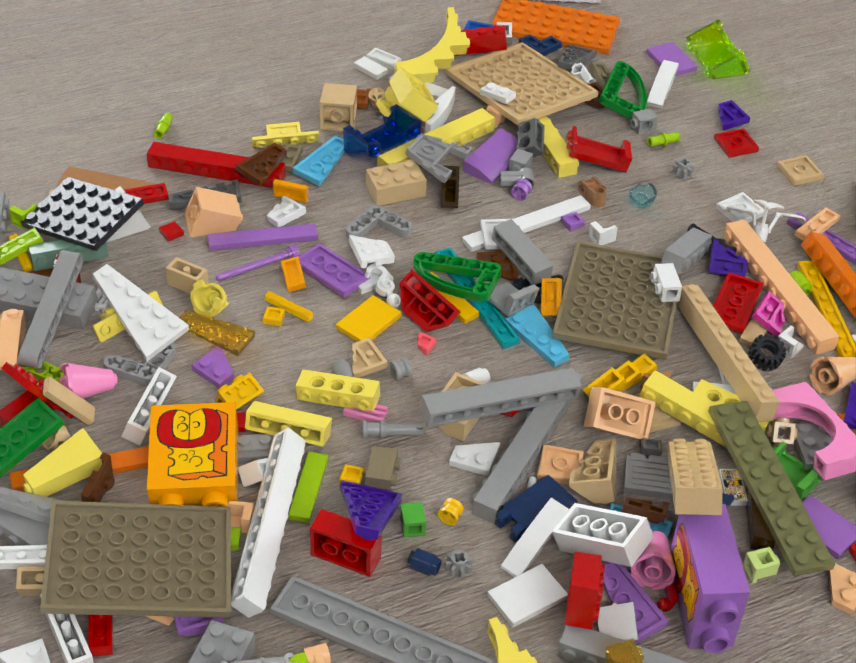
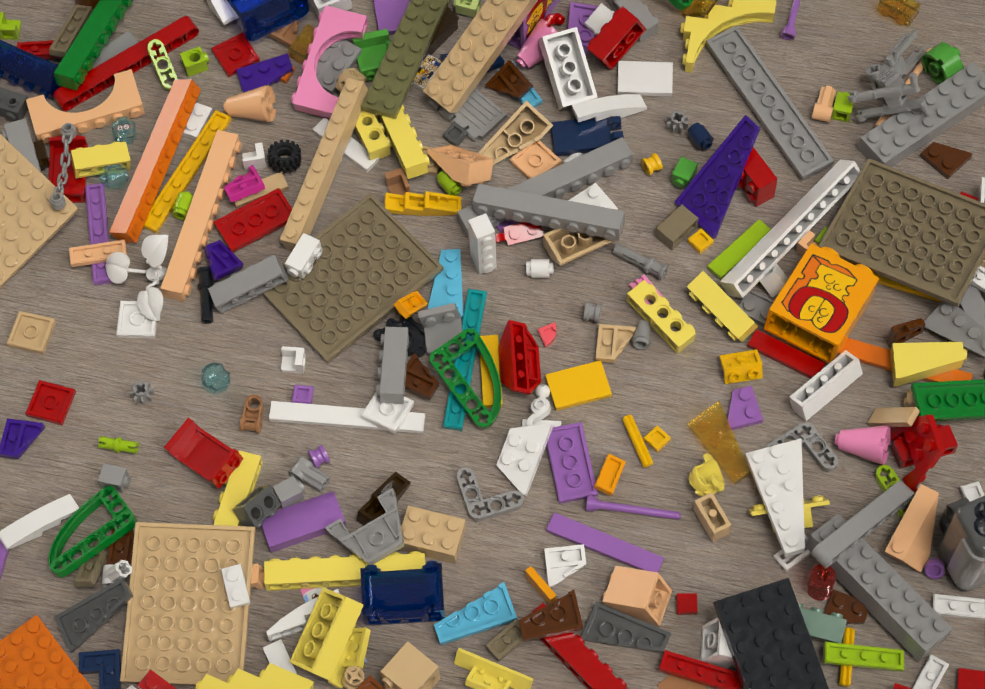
camera: 140 degrees left, 20 degrees up
(531, 340) = (482, 244): none -> white brick

